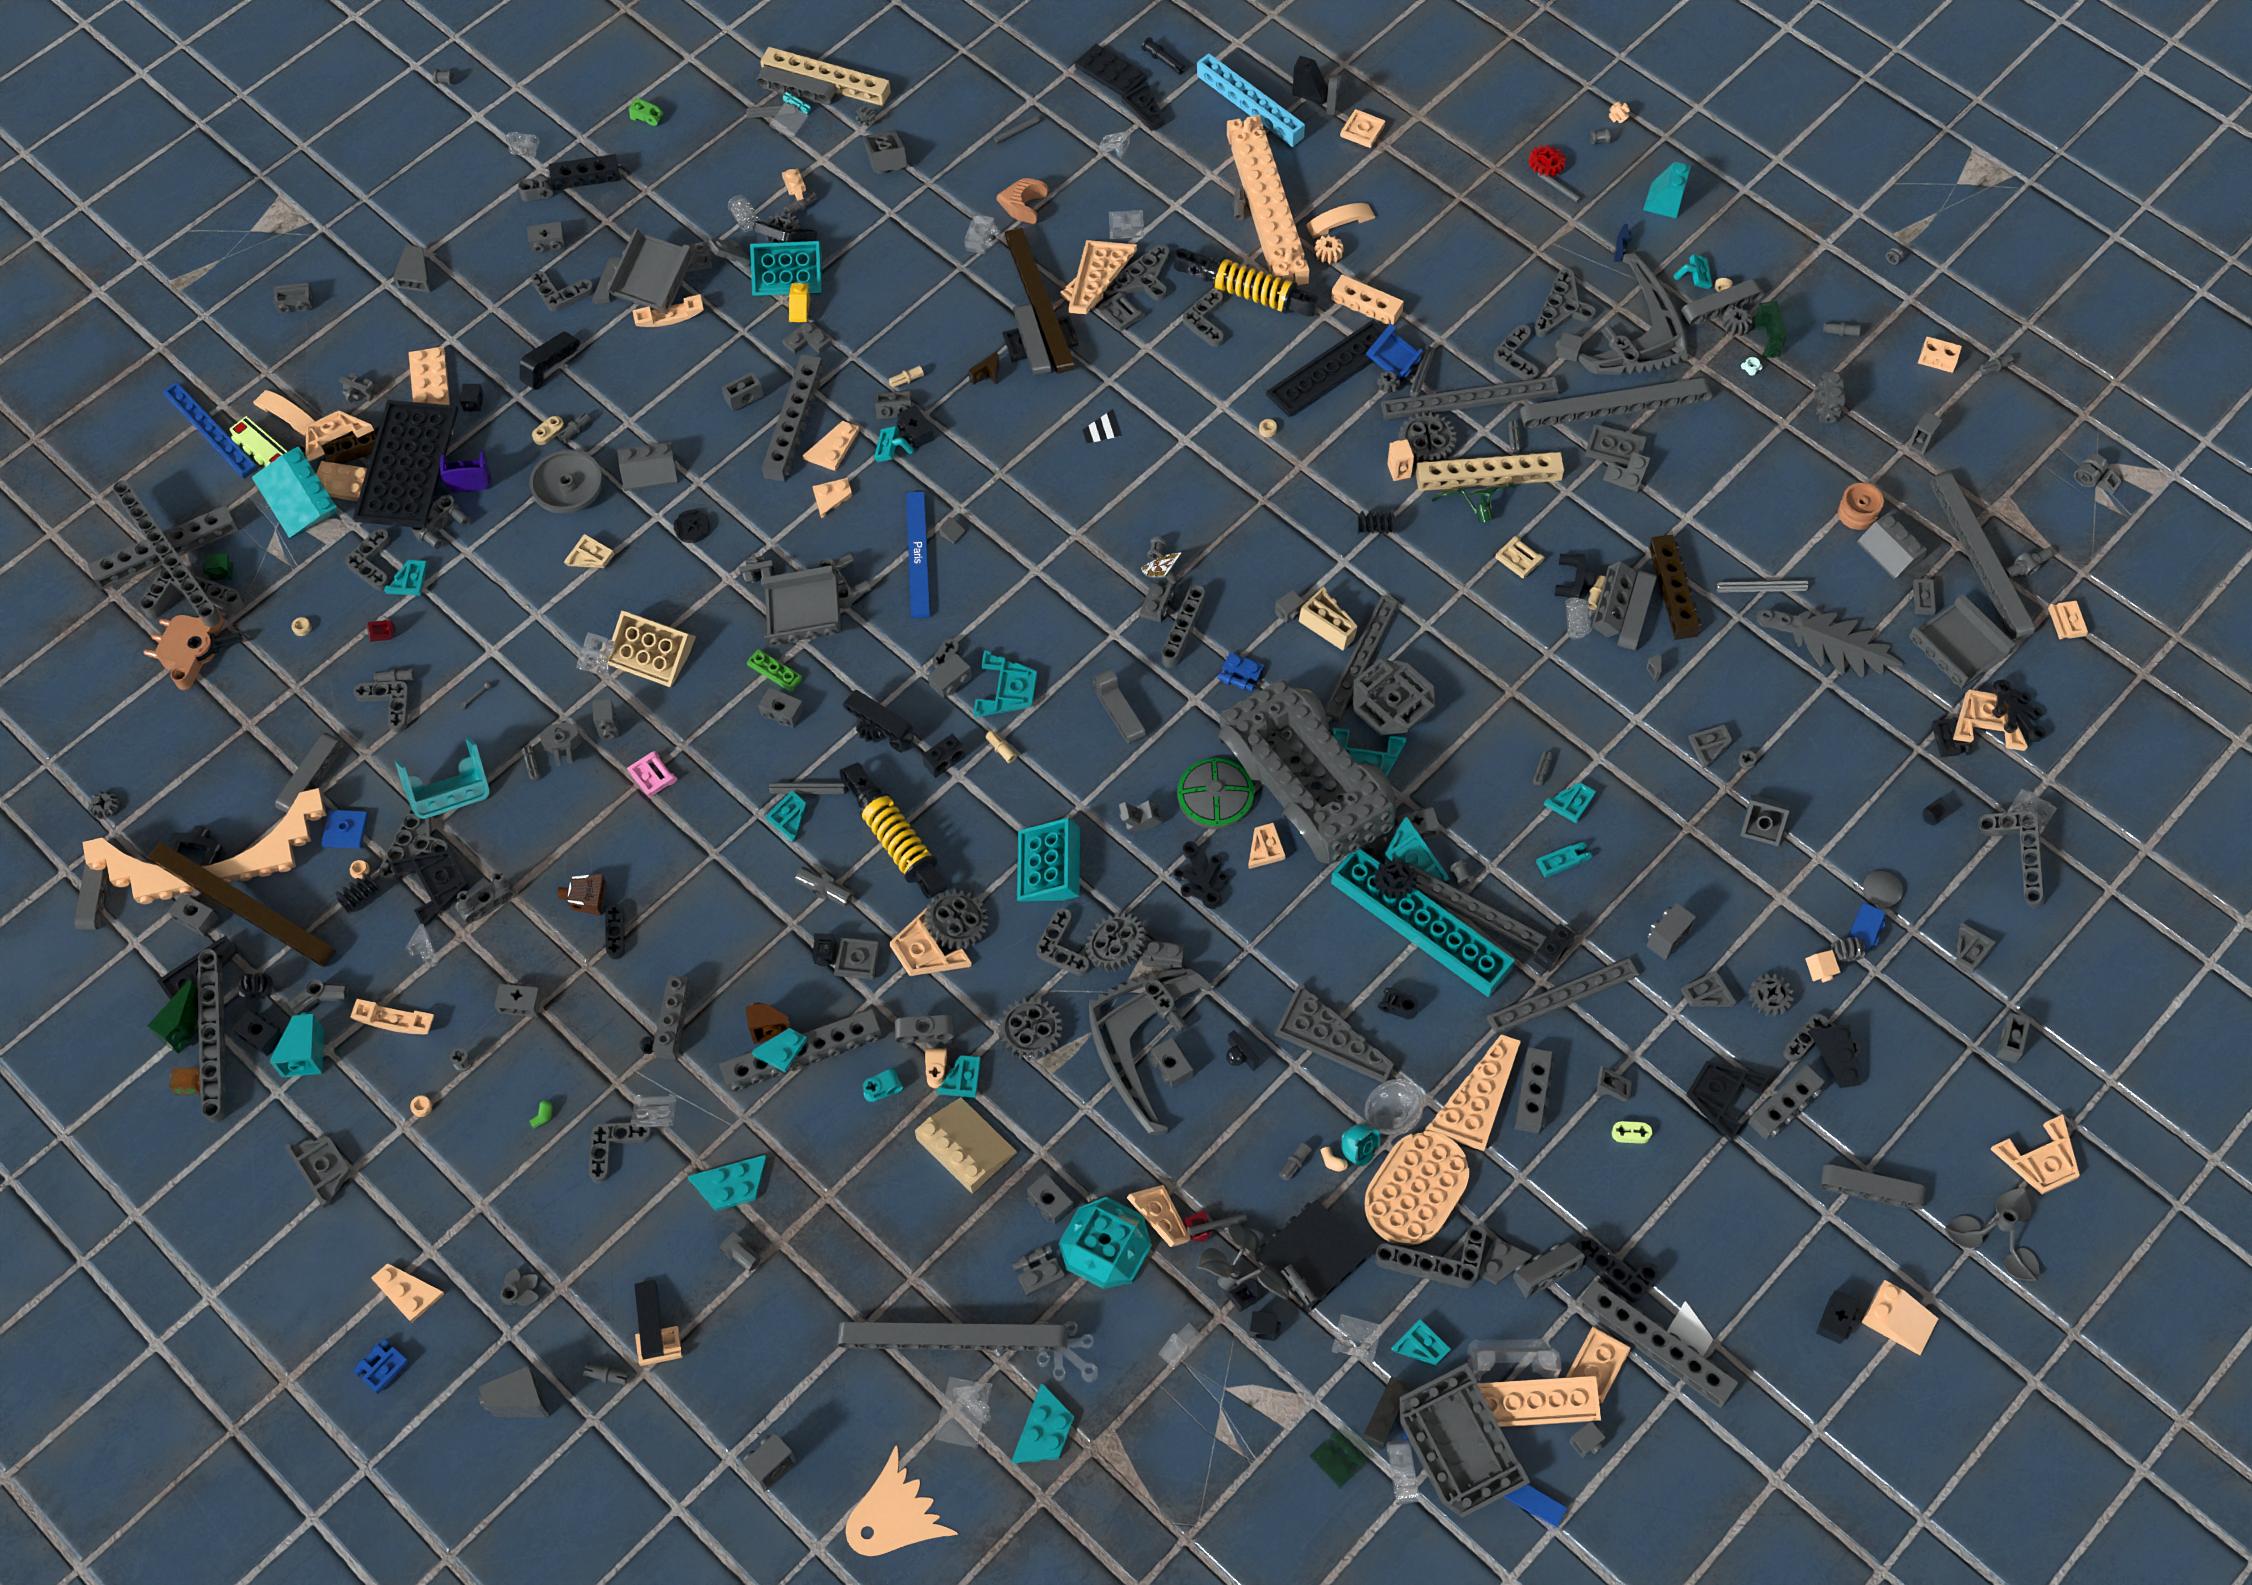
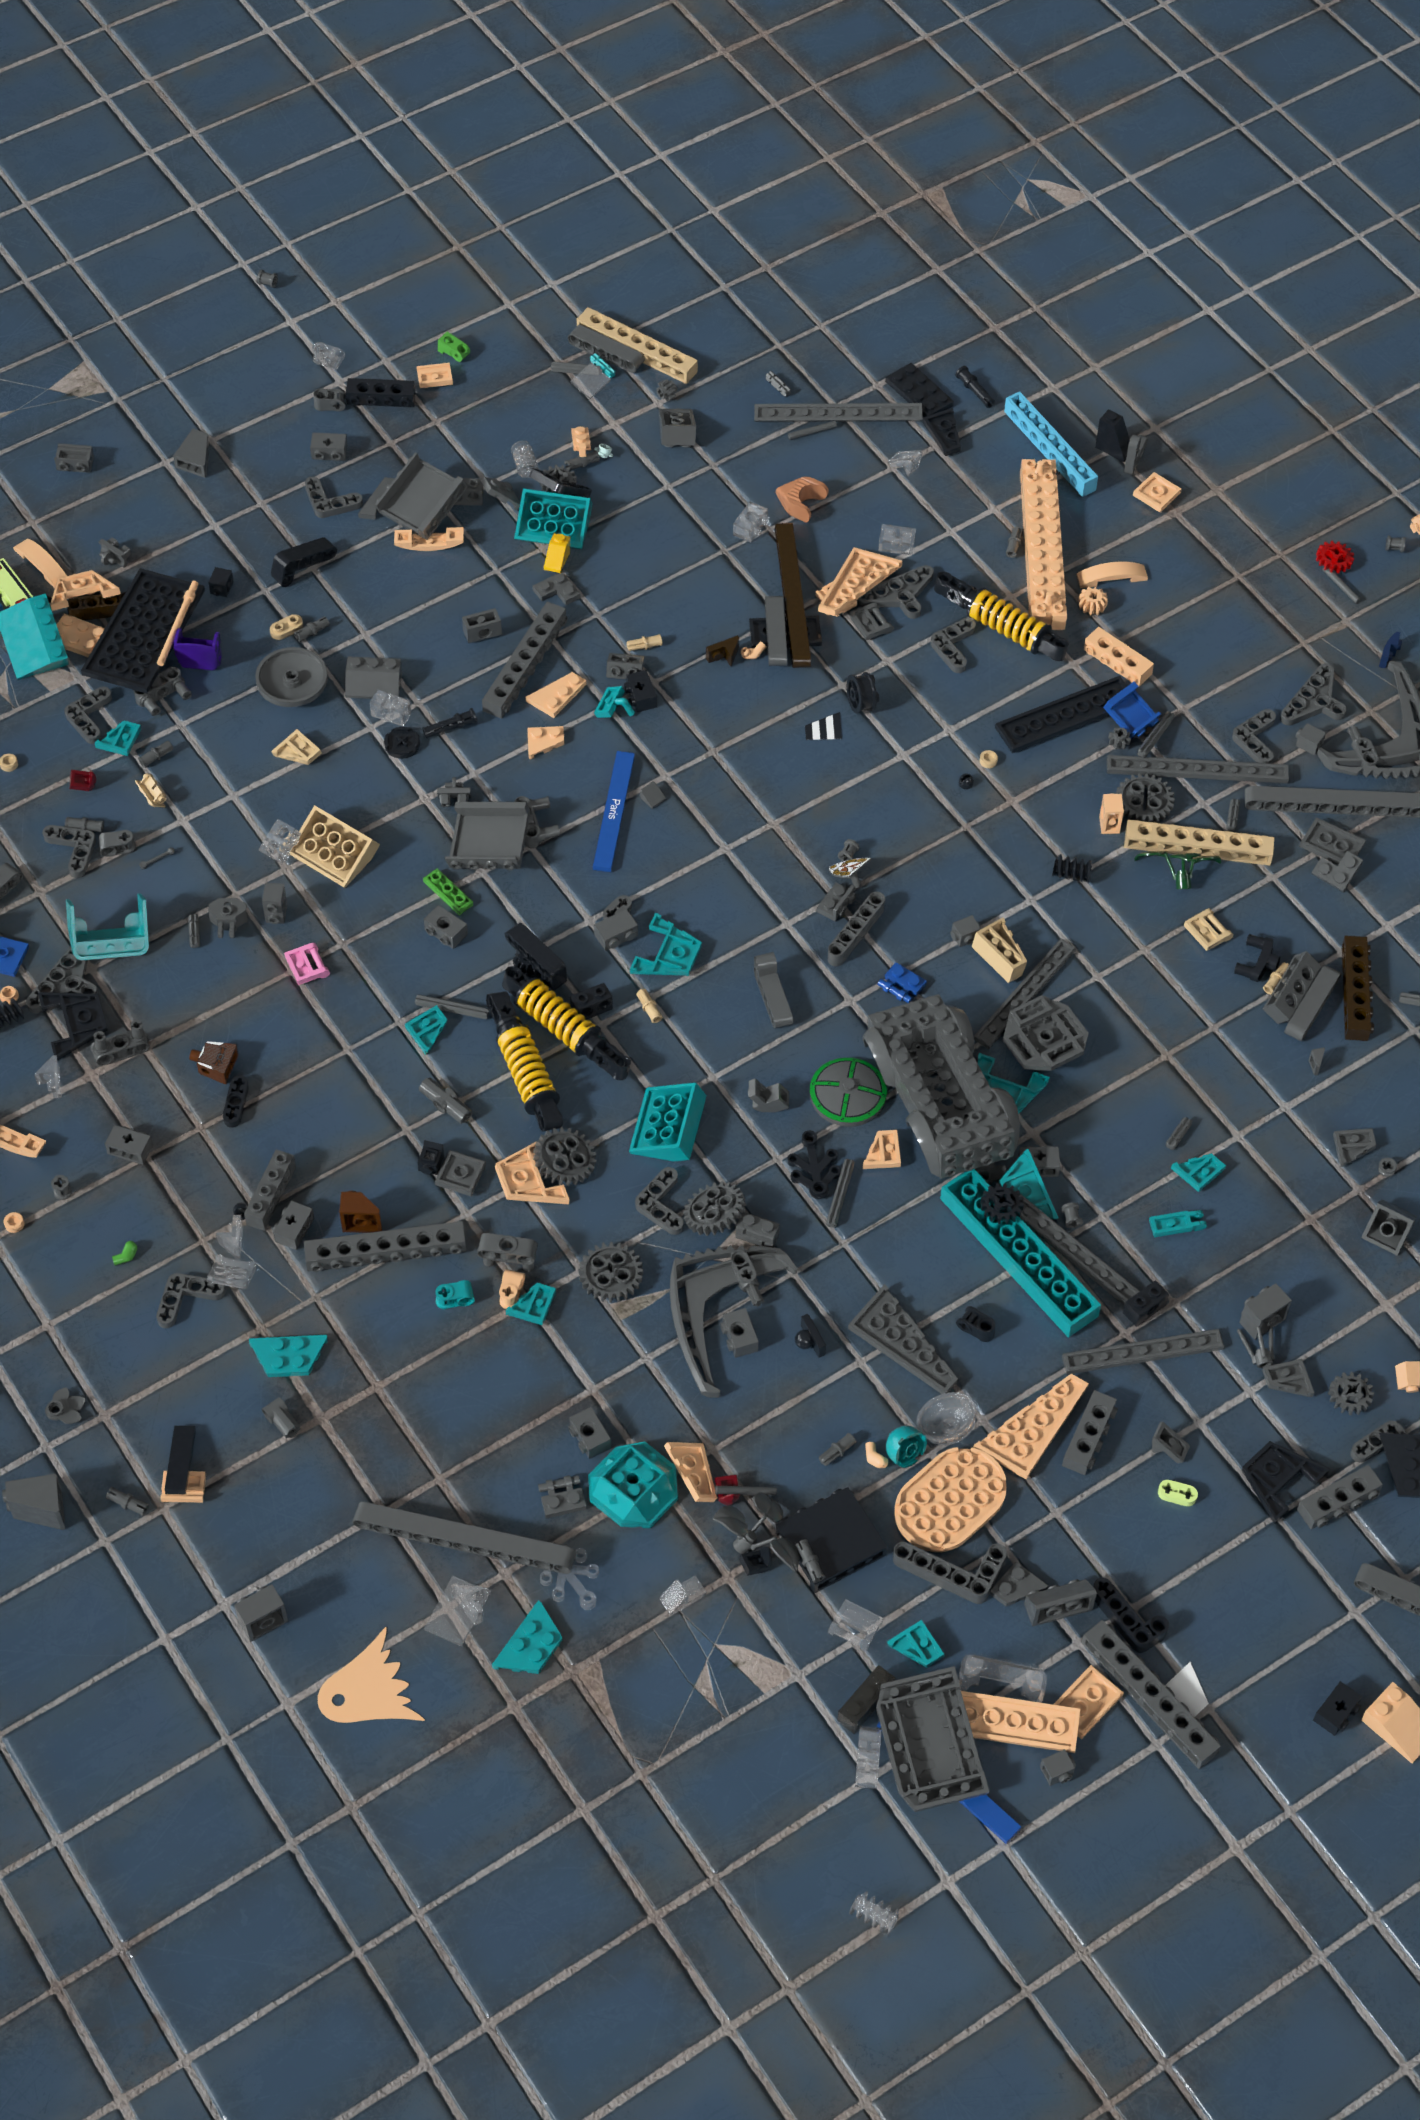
camera: 10 degrees right, 5 degrees down
(429, 376) = (186, 554): light nougat plate -> none
(430, 688) = (114, 843): none -> dark grey piece
(444, 421) = (189, 597): none -> light nougat bar
(448, 587) = (155, 753): none -> dark grey axle
(458, 632) = (154, 795): none -> tan hinge
(633, 144) = (434, 375): none -> light nougat plate
(646, 1077) = (233, 1239): none -> clear slope
(672, 493) = (390, 707): none -> clear brick
(705, 1057) = (293, 1225): none -> dark grey brick
(742, 493) = (459, 720): none -> black pin
(781, 1049) = (366, 1239): teal wing -> none
(819, 189) = (604, 450): none -> light aqua plate
(942, 792) = (564, 1022): none -> piece
(964, 1144) = (520, 1365): tan slope -> none
(972, 89) = (778, 384): none -> axle
(1015, 366) = (753, 653): none -> light nougat arm
(1037, 107) = (838, 412): none -> dark grey plate
(1131, 386) = (862, 692): none -> black wheel
(1233, 898) = (840, 1193): none -> dark grey axle
(1253, 457) = (967, 782): none -> black hinge
(1264, 1326) = (767, 1594): black brick -> none
(1333, 1464) = (802, 1736): clear green plate -> none
(1577, 617) = (1251, 998): clear piece -> none
(1680, 975) = (1263, 1356): none -> dark grey plant

